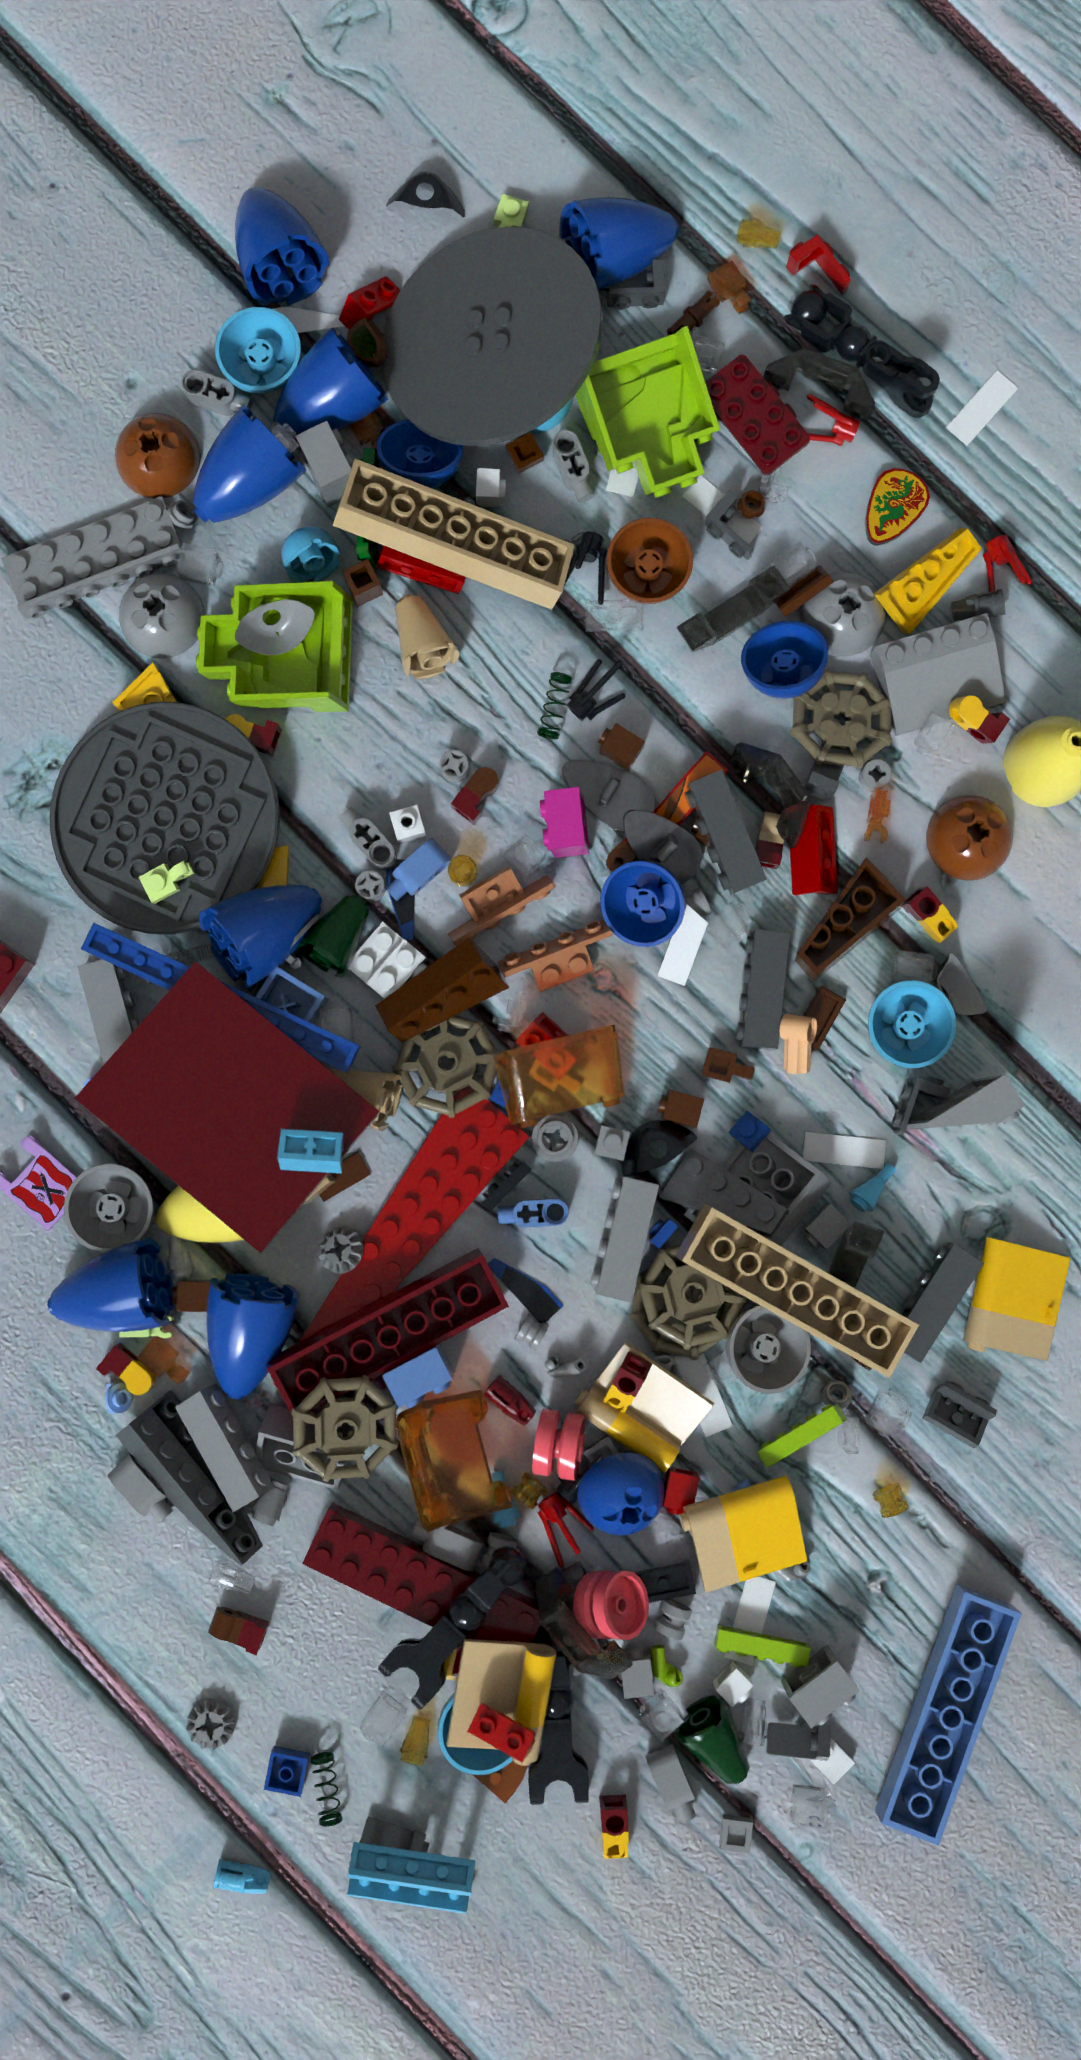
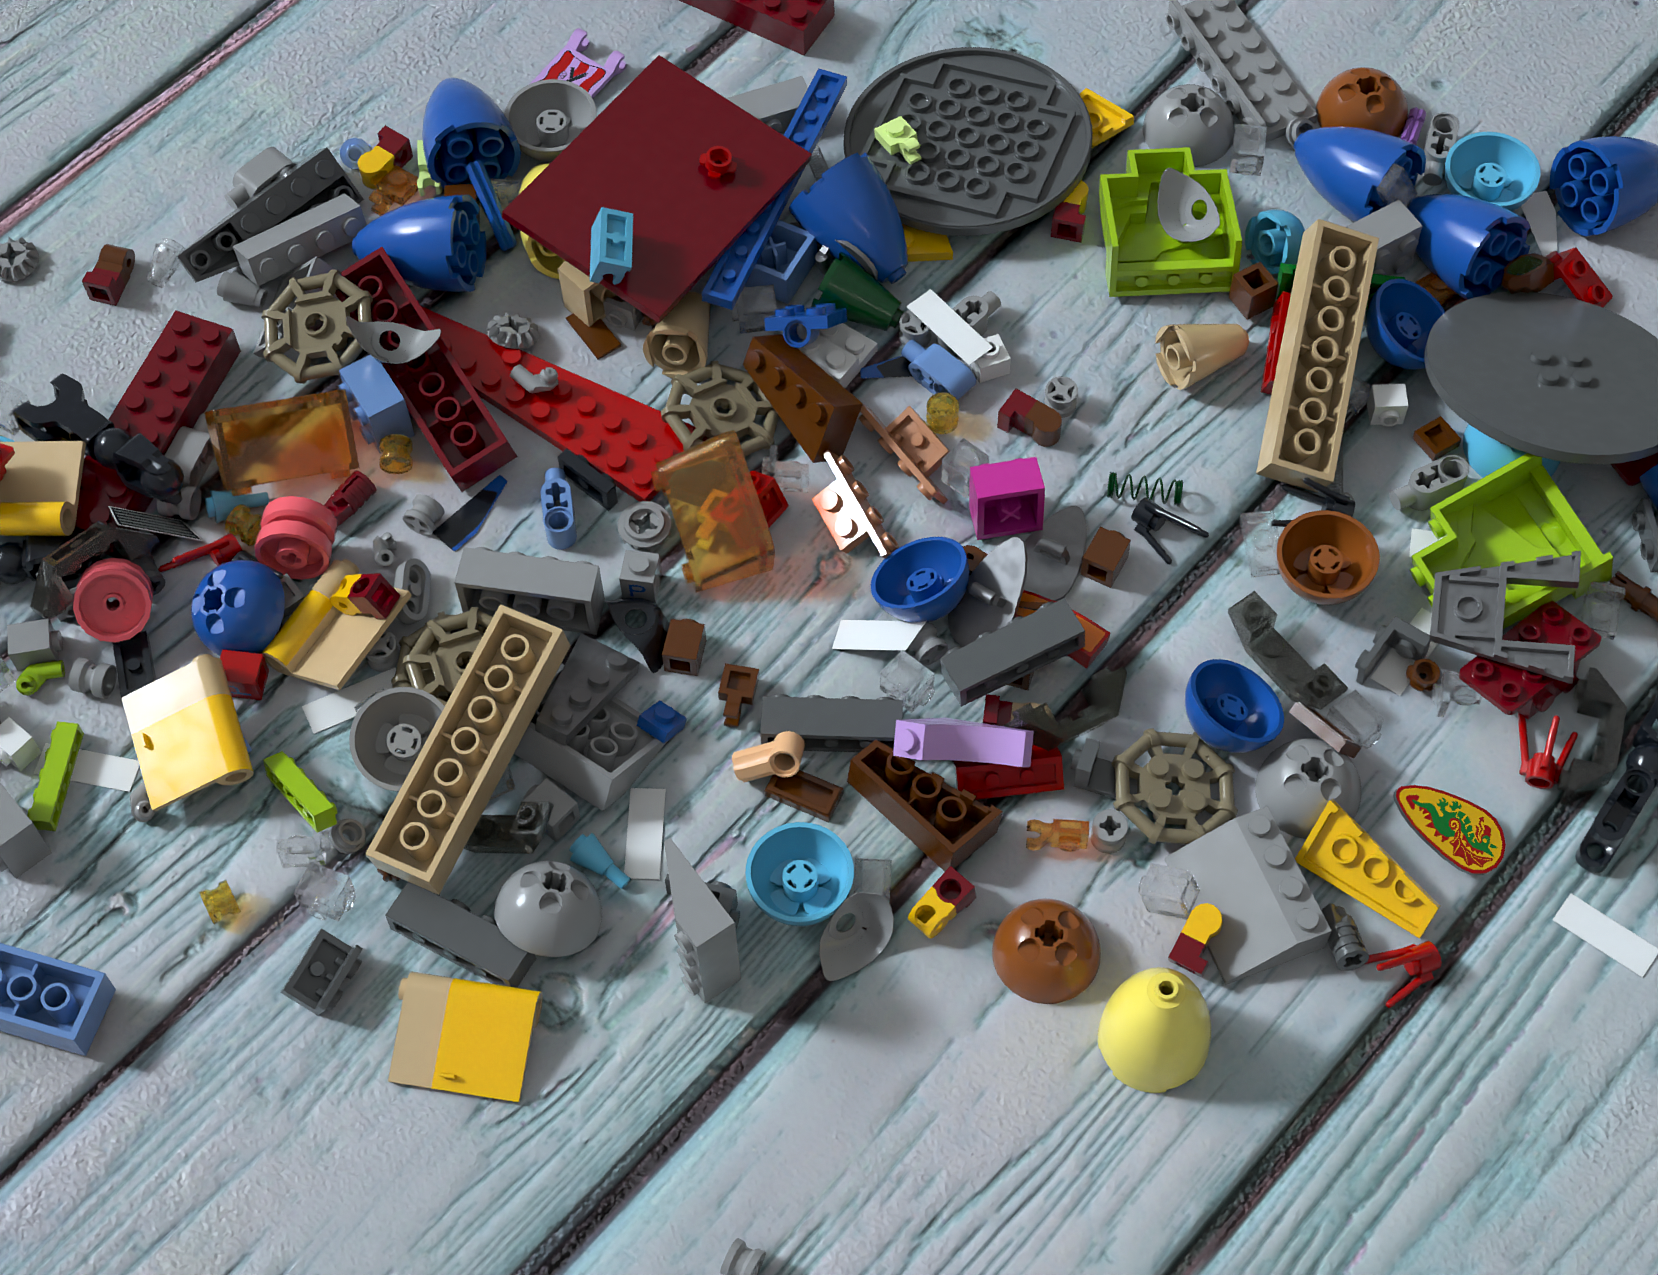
camera: 90 degrees right, 25 degrees down
(191, 416) = (1413, 125): none -> medium lavender axle
(201, 1267) = (491, 205): none -> blue axle
(211, 1039) = (720, 155): none -> red plate
(372, 982) = (813, 318): none -> blue plate
(382, 854) = (949, 327): none -> white sticker
(382, 1339) = (412, 341): none -> light grey piece
(405, 1229) = (537, 383): none -> light grey arm
(465, 1356) = (396, 454): none -> clear yellow wheel
(530, 1589) = (152, 523): none -> sticker
(605, 1341) = (418, 586): none -> light grey plate
(714, 451) = (1471, 613): none -> flat silver wing
(800, 884) = (962, 741): none -> lavender arch
(931, 1242) = (549, 909): none -> light grey piece

